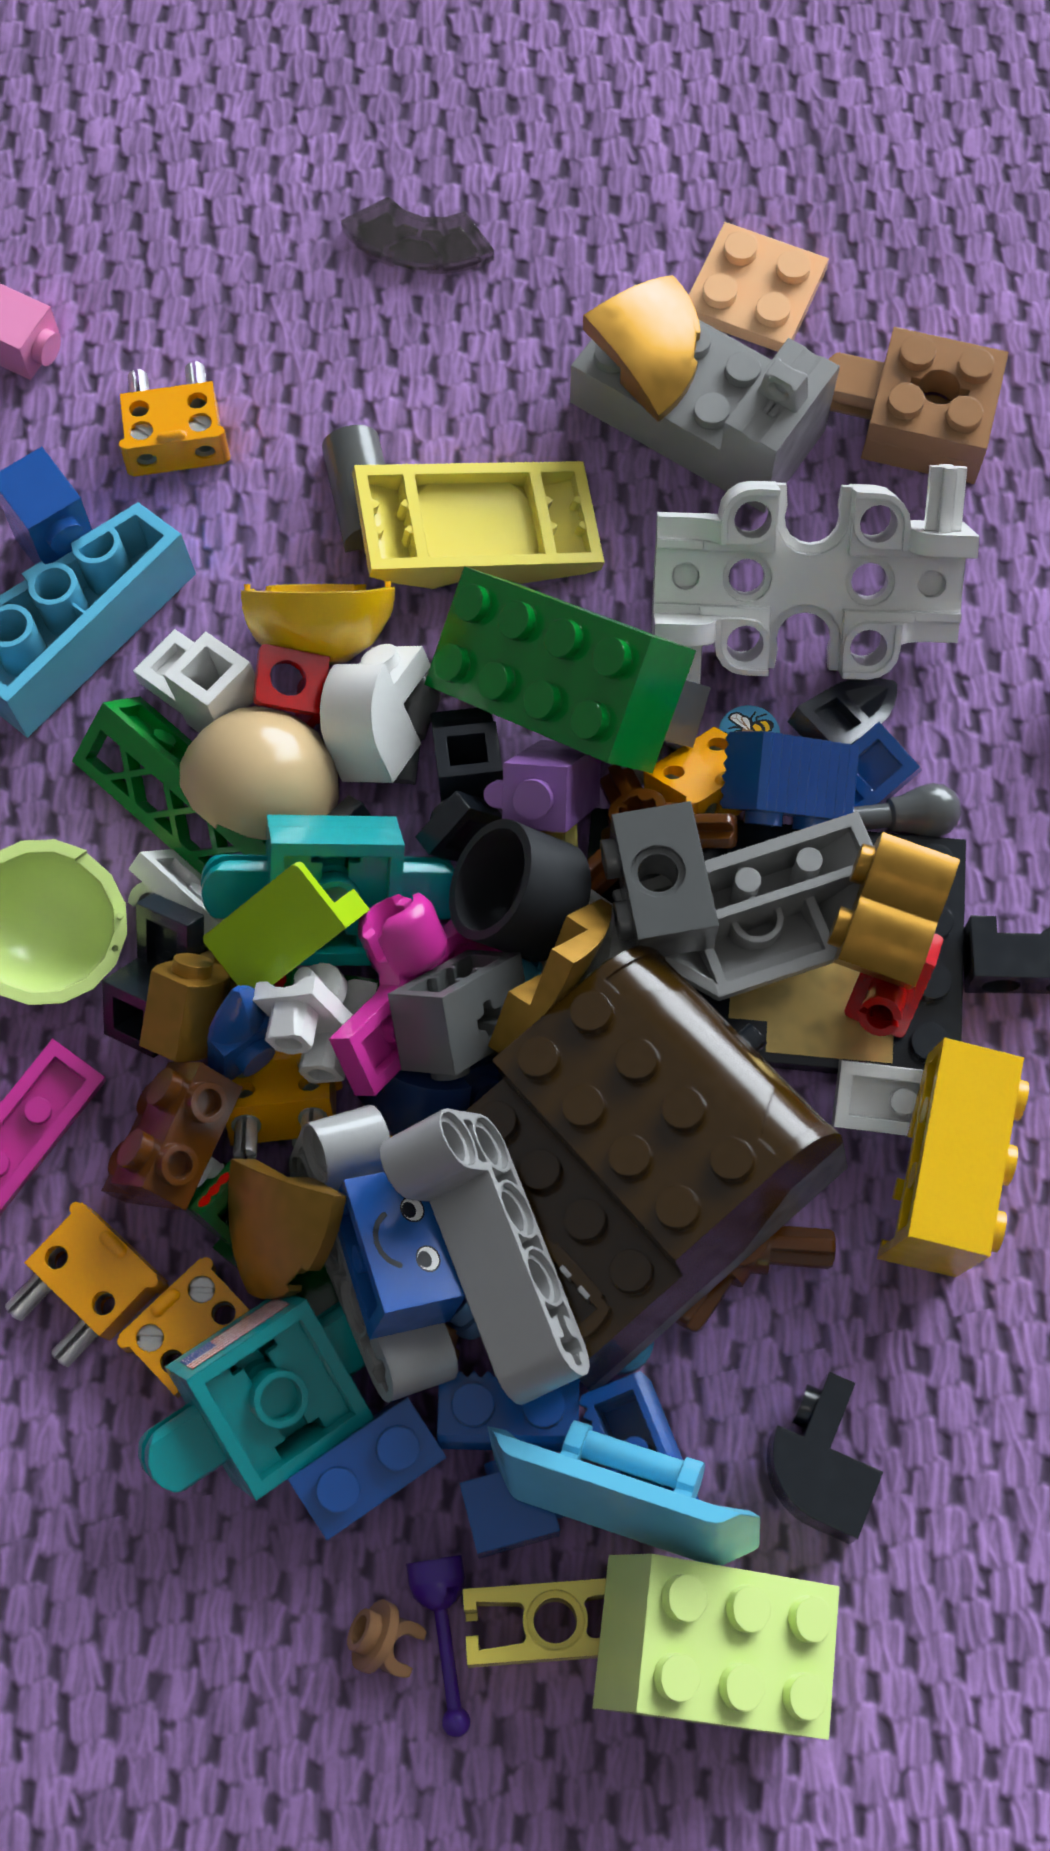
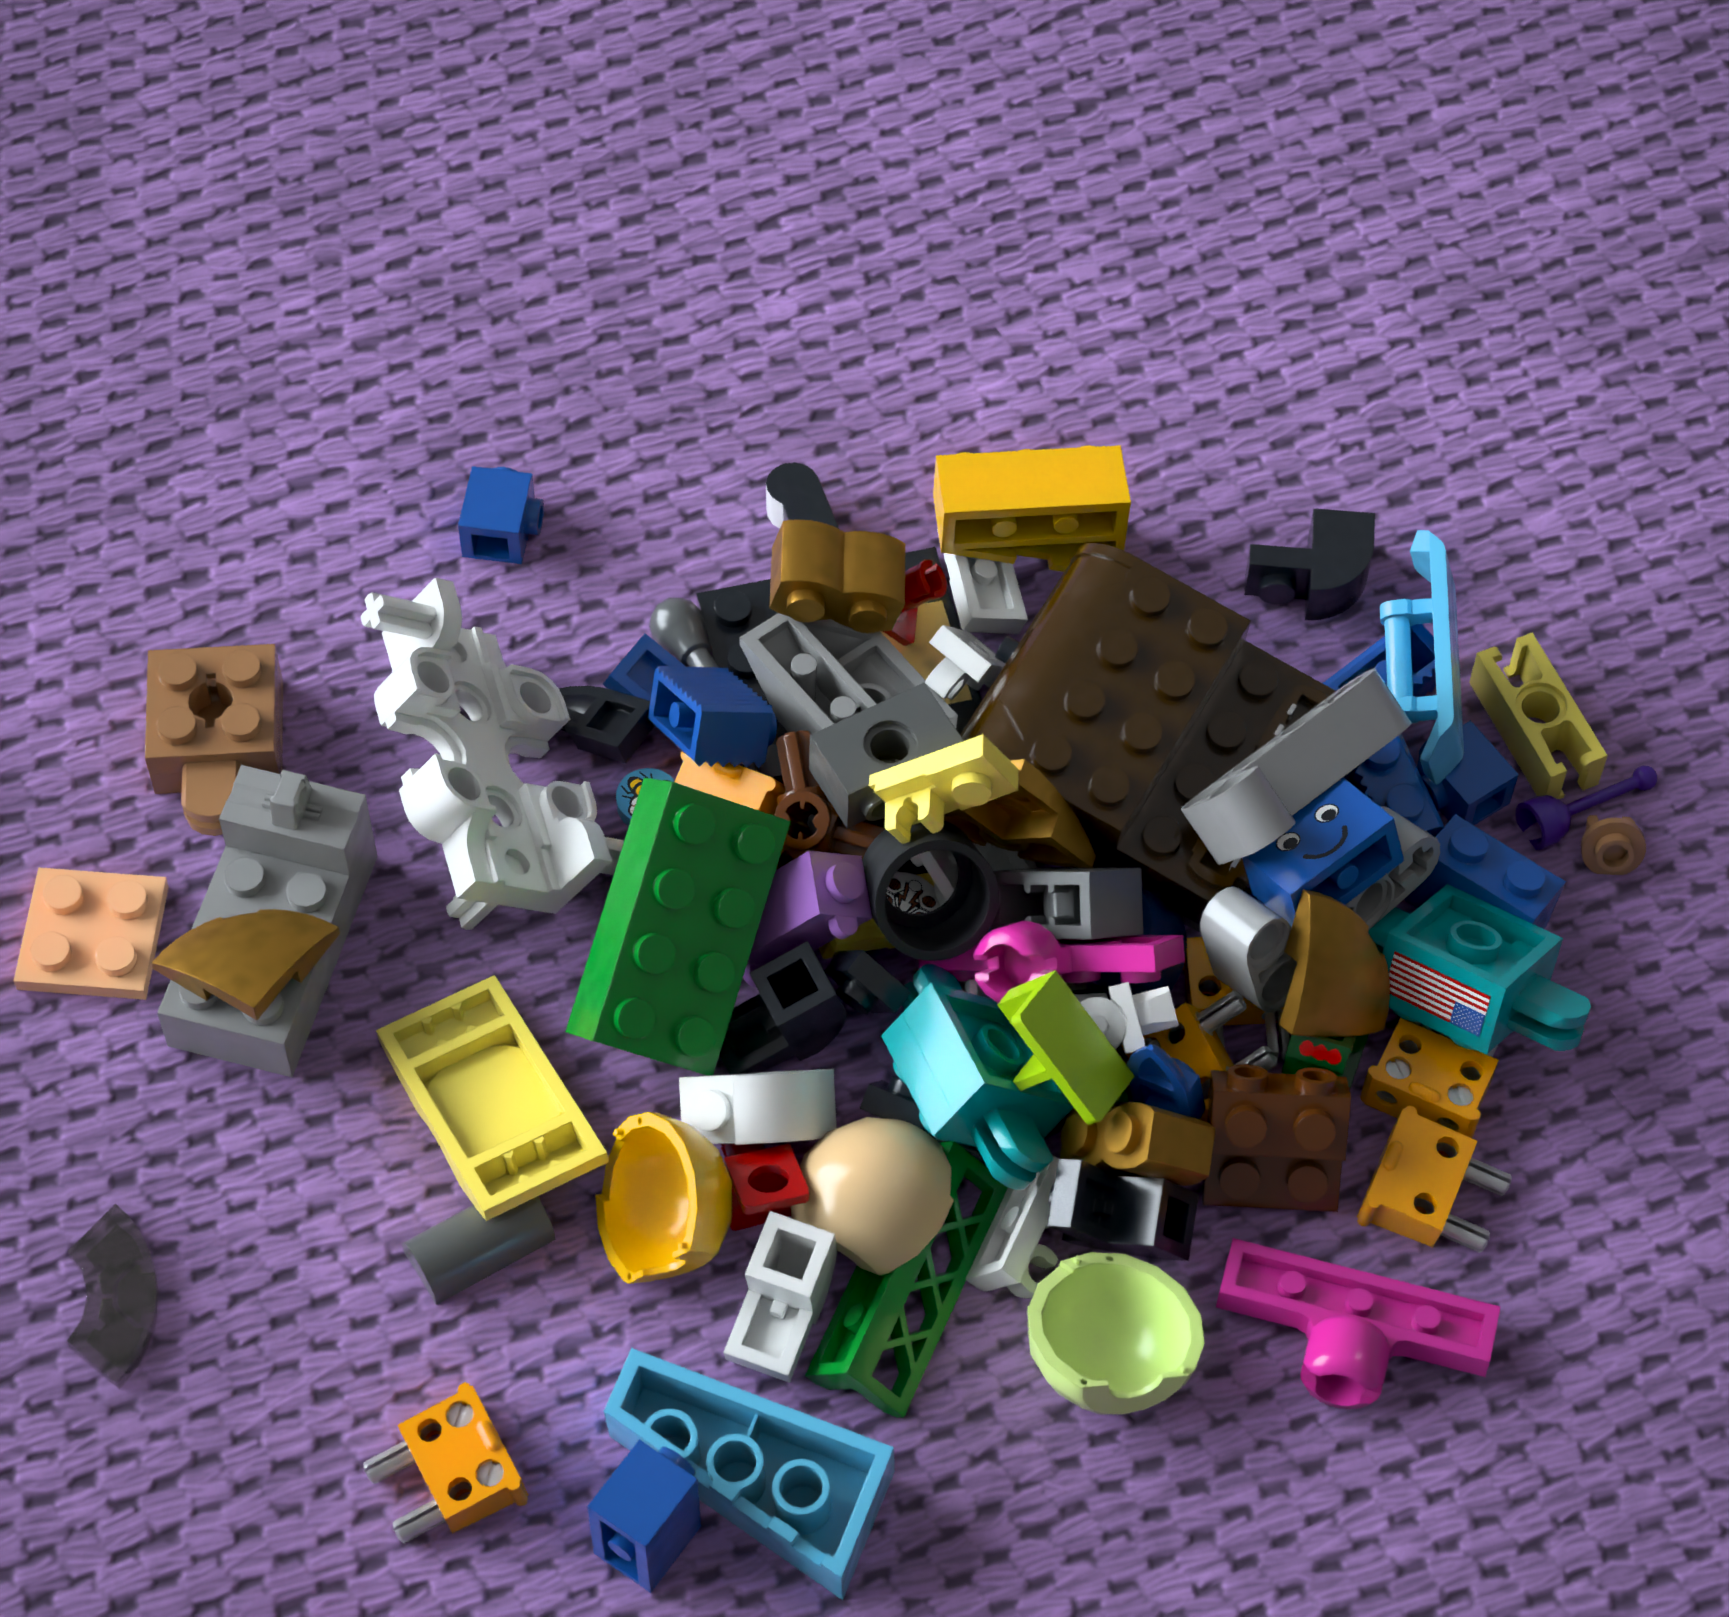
camera: 110 degrees left, 10 degrees down
(573, 872) = (942, 783): none -> light yellow plate
(717, 1646) = (1516, 581): yellowish green brick -> none
(788, 1024) = (965, 663): none -> white plate

